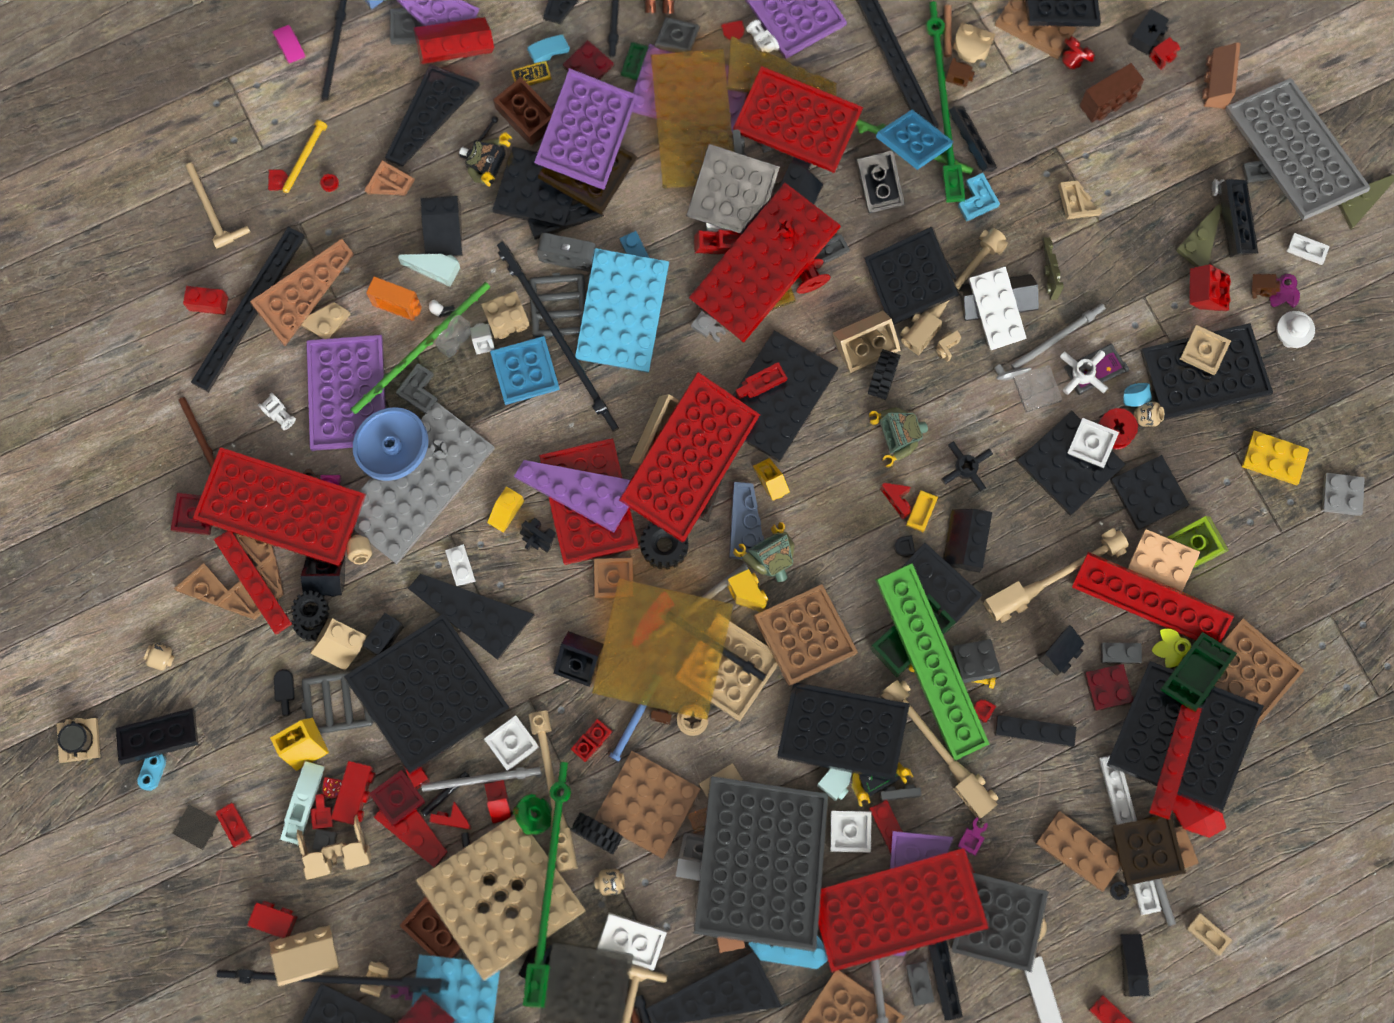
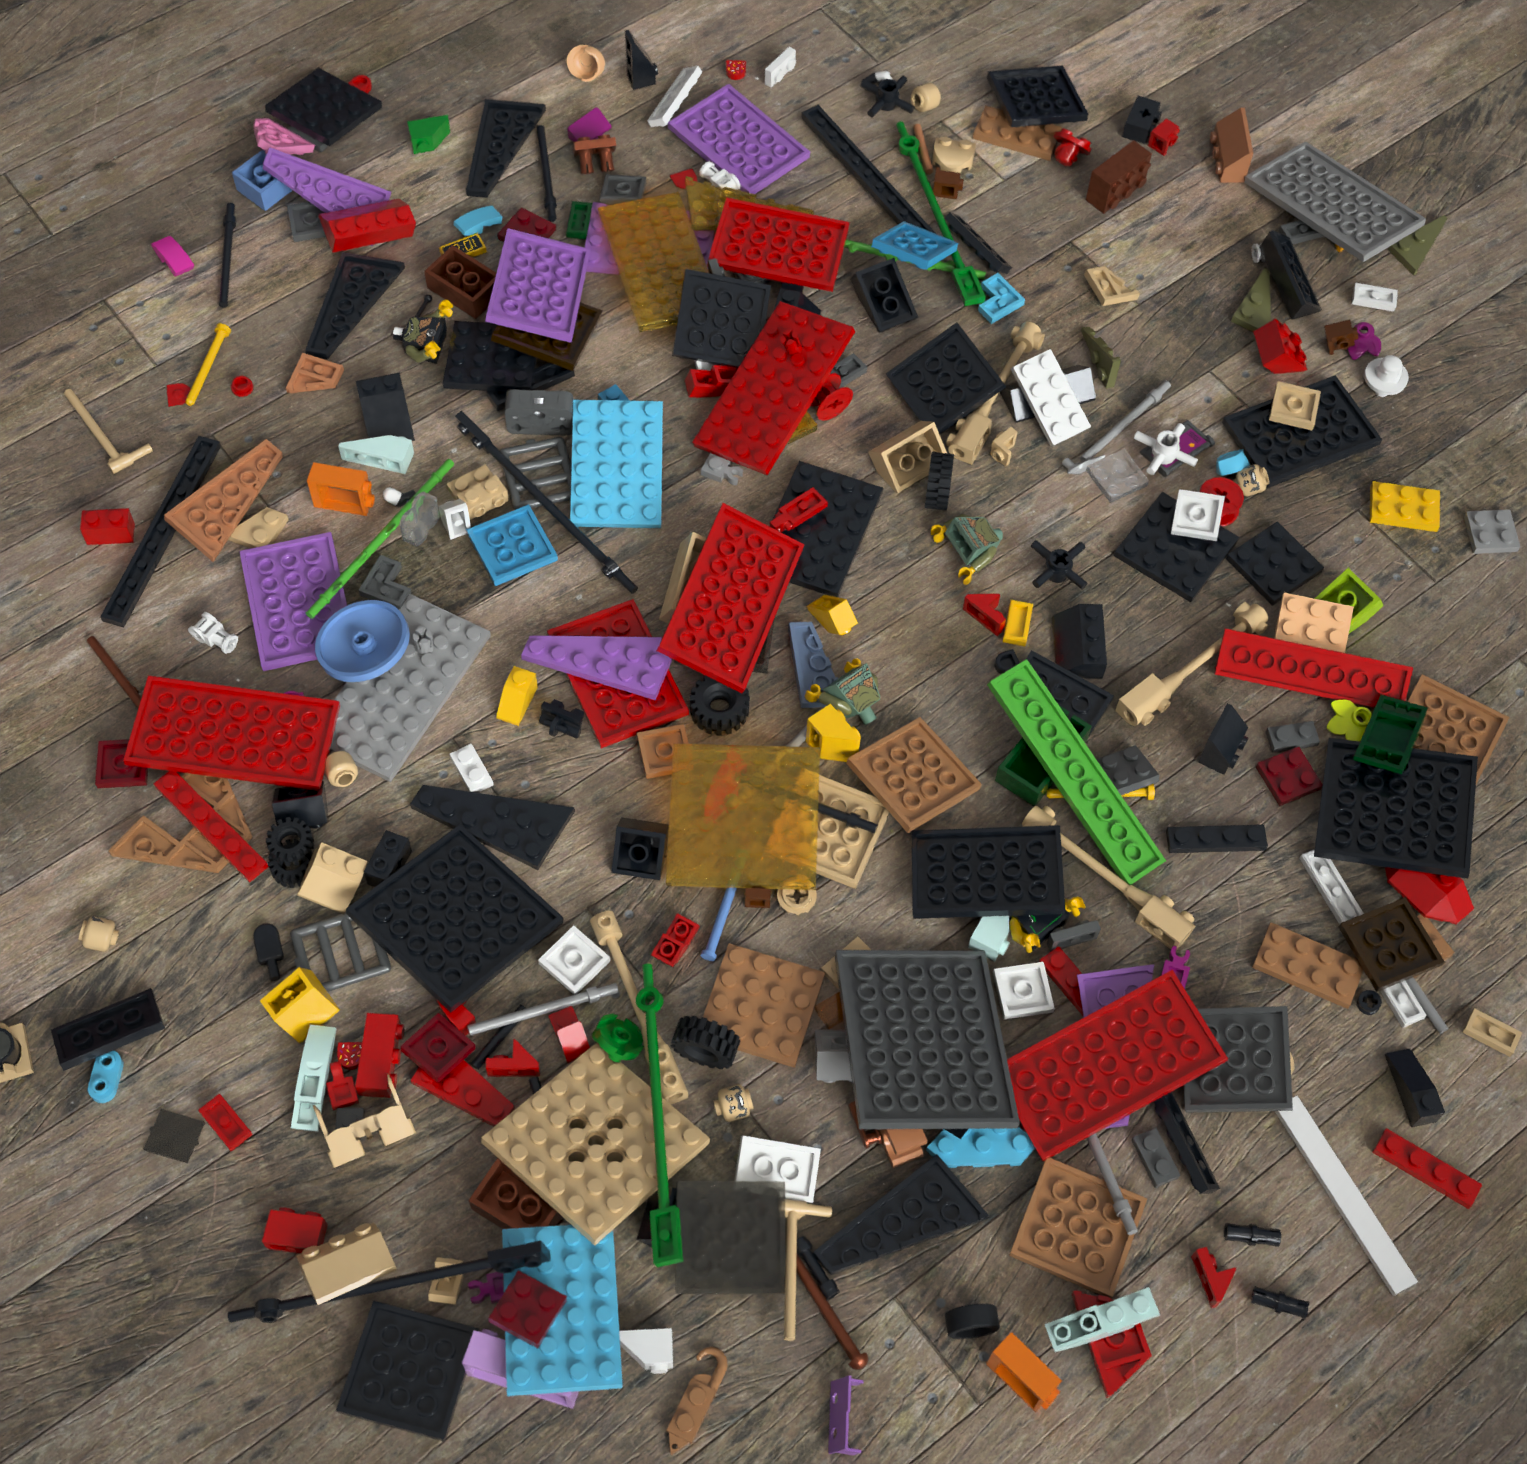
camera: 15 degrees left, 15 degrees down
(984, 709) = (1150, 823): red tile -> none
(1175, 762) = (1395, 832): red plate -> none

